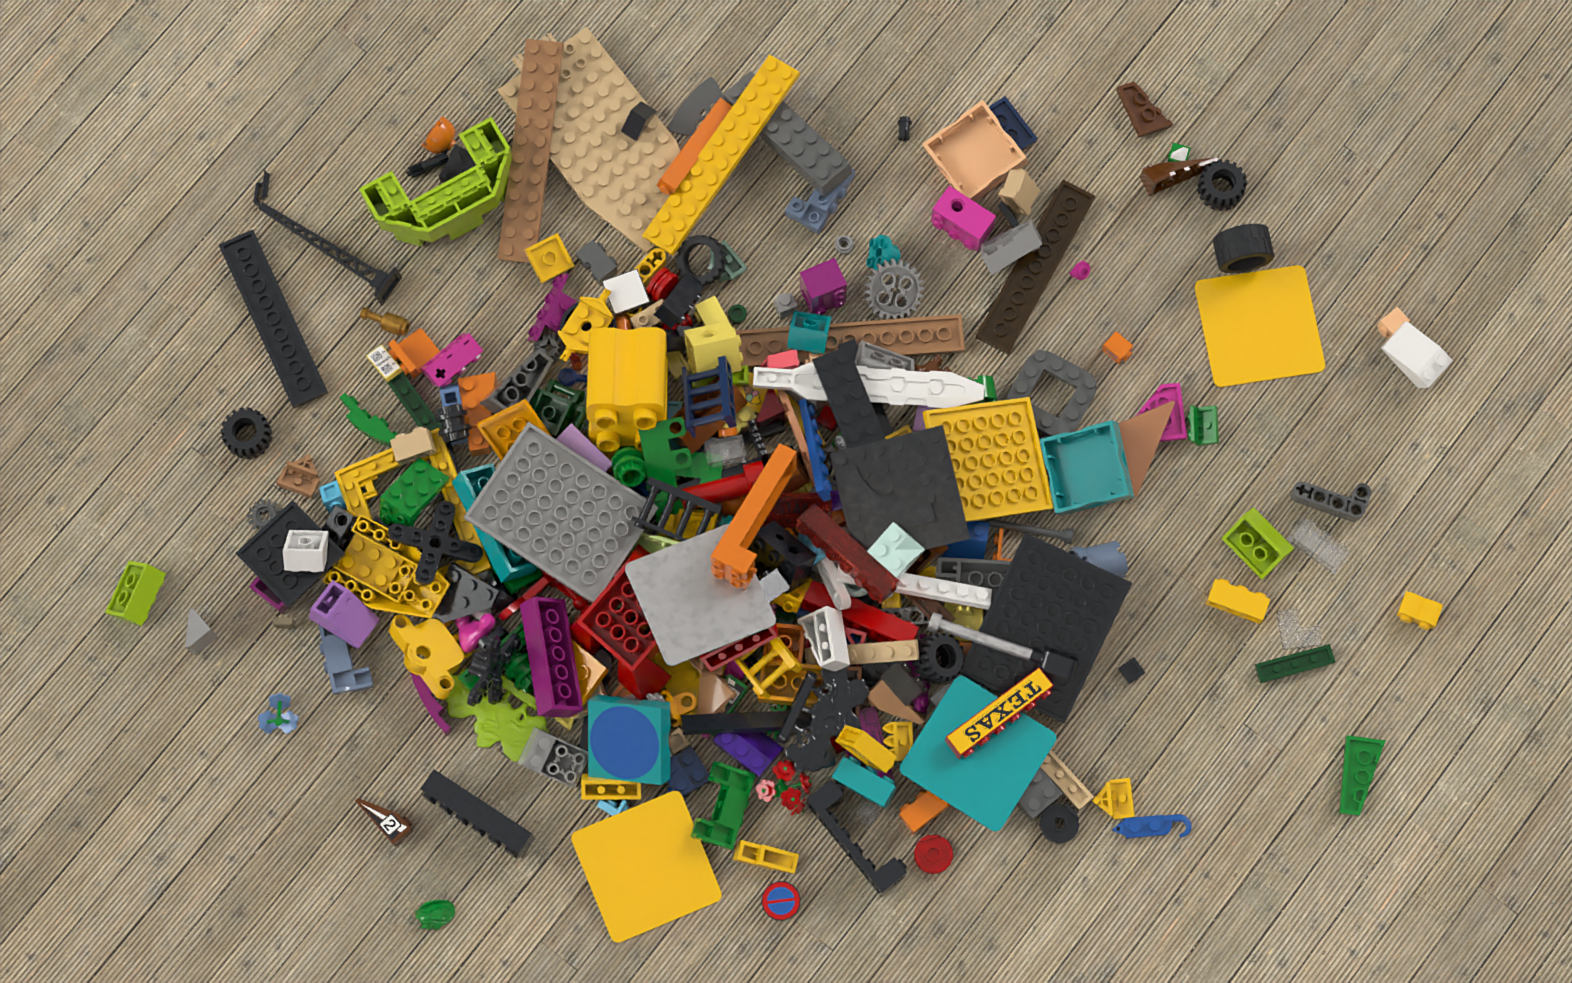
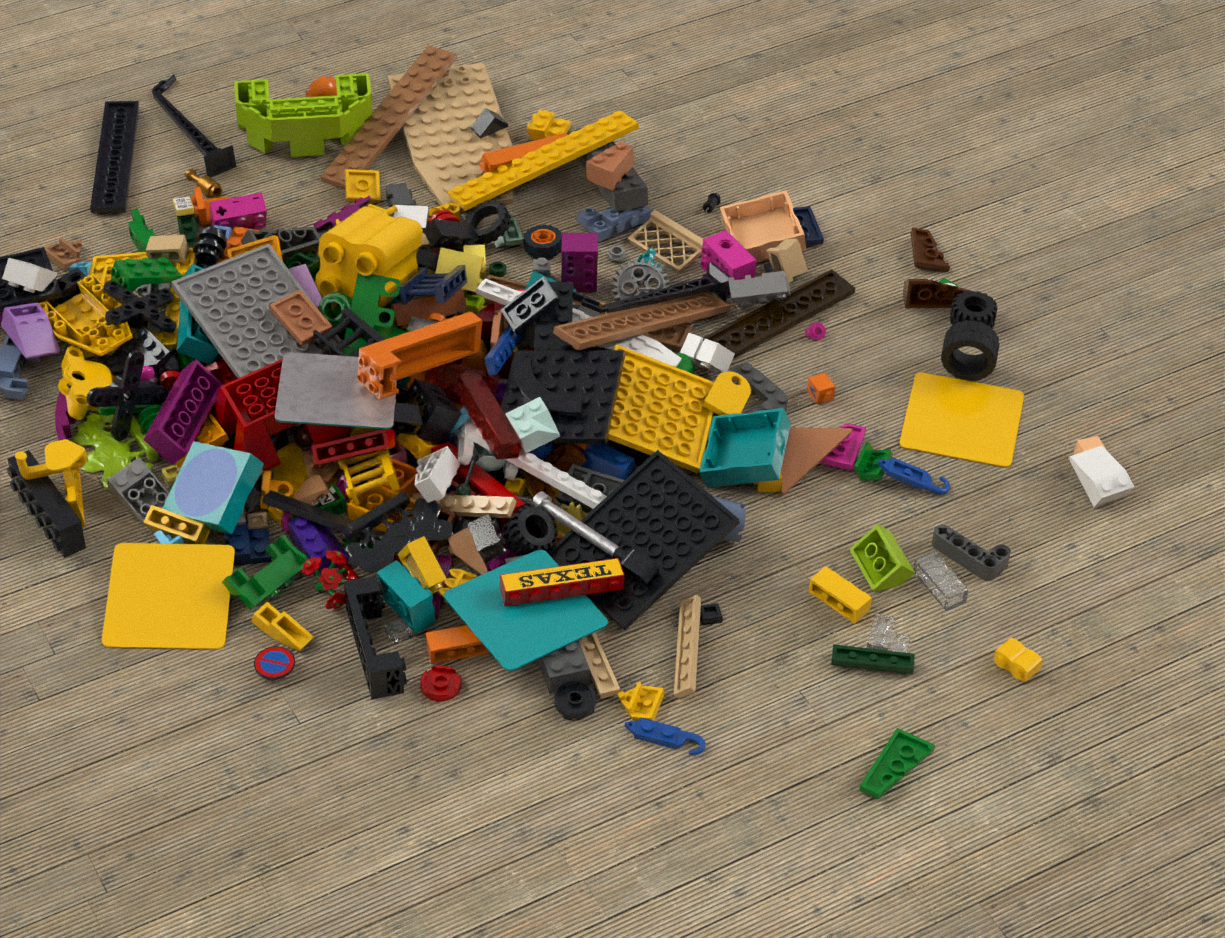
camera: 20 degrees right, 30 degrees down
(239, 420) = (41, 210): black tyre -> none
(482, 782) = (63, 458): none -> yellow plate
(607, 501) = (300, 317): none -> nougat plate
(692, 87) = (546, 125): none -> yellow plate
(766, 248) = (543, 241): none -> black wheel
(804, 153) = (610, 165): none -> nougat wedge
(820, 392) = (530, 305): none -> black tile
(856, 636) = (464, 488): none -> hinge
(891, 191) = (677, 234): none -> tan fence
(925, 350) = (639, 320): none -> medium nougat plate
(959, 250) = (713, 281): none -> black piece
(998, 358) = (707, 354): none -> white piece
(1043, 409) = (726, 396): none -> yellow tile
(1130, 720) = (687, 646): none -> tan plate
(1246, 427) = (912, 475): none -> blue plate

